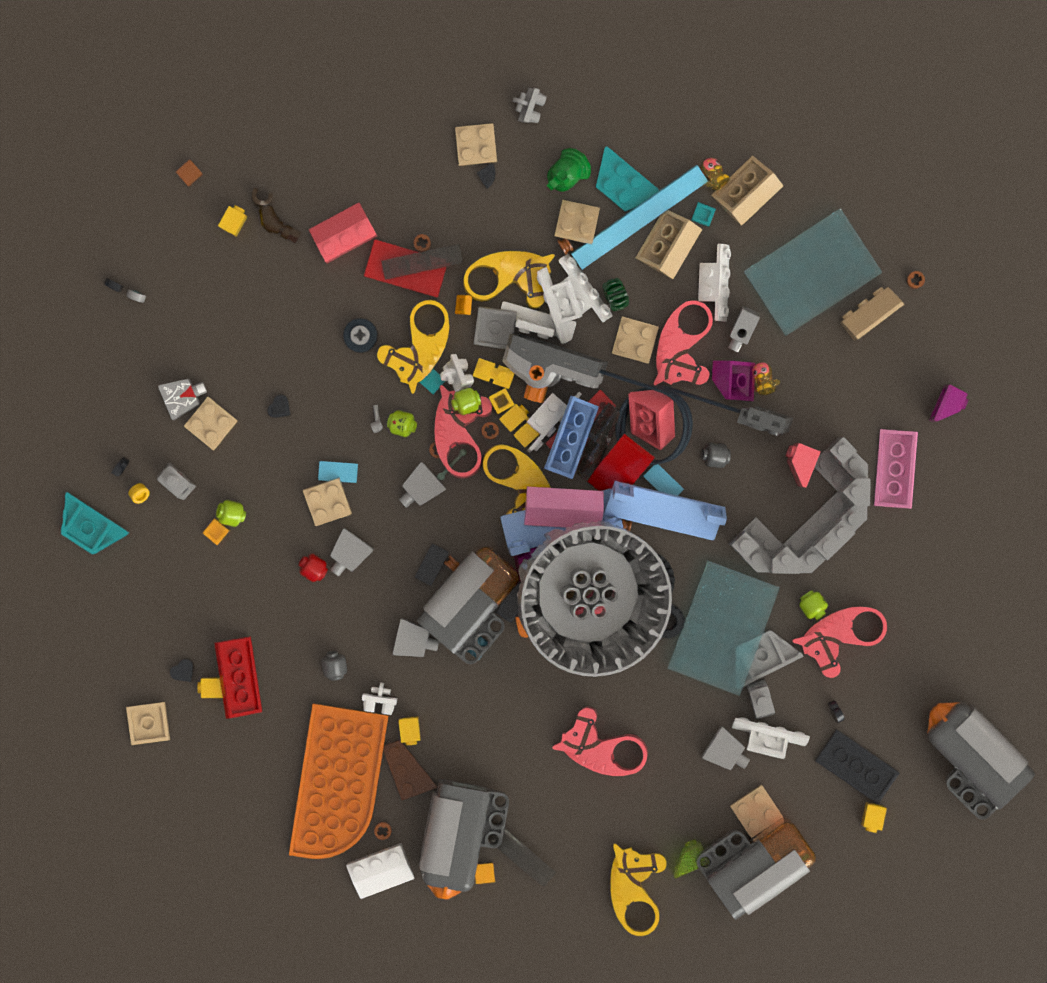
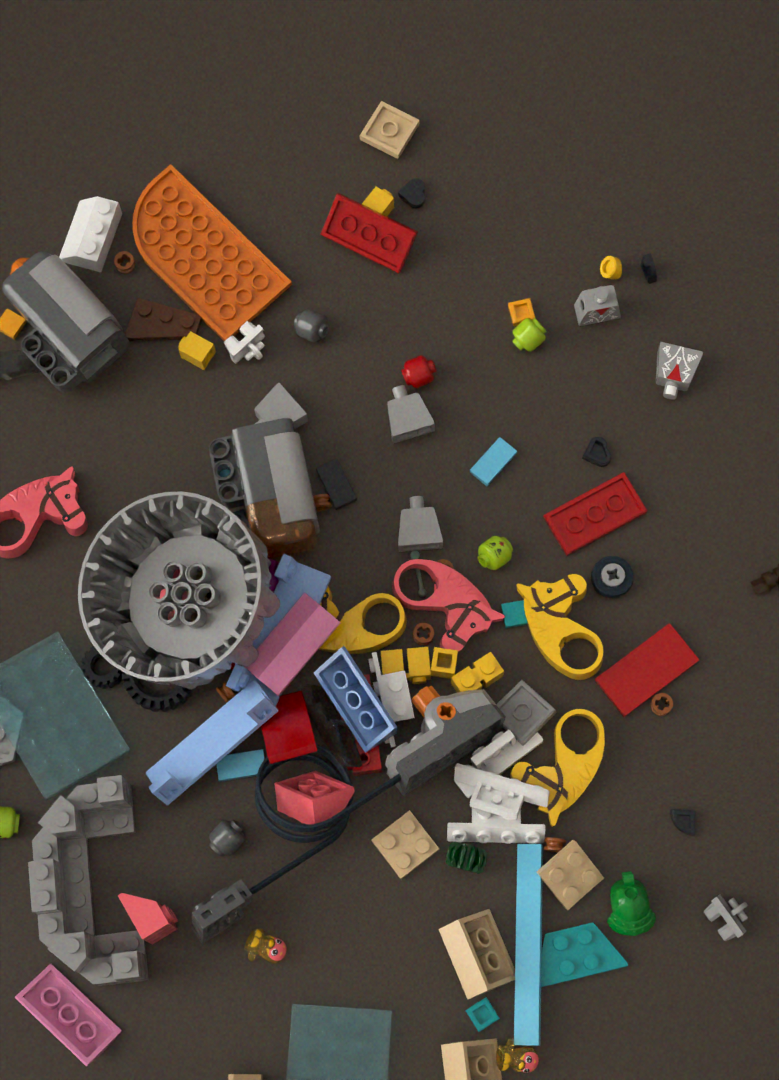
camera: 130 degrees right, 15 degrees down
(88, 527) = (613, 203): teal wing -> none
(211, 423) = (629, 379): tan plate -> none
(324, 378) = (595, 514): none -> red tile
(327, 501) = (472, 430): tan plate -> none
(342, 232) = (728, 633): coral slope -> none
(376, 426) = (510, 530): light grey hand -> none
(422, 262) = (642, 687): clear smoke slope -> none
(454, 373) = (506, 635): white hips -> none
(463, 304) = (569, 698): light orange tile -> none
(466, 401) = (470, 625): lime head -> none
(476, 144) = (724, 832): tan plate -> none
(672, 357) = (360, 870): coral animal -> none
(714, 282) = (403, 972): white bracket -> none
(734, 379) = (288, 914): magenta slope -> none
(747, 320) = (336, 971): light grey torso -> none

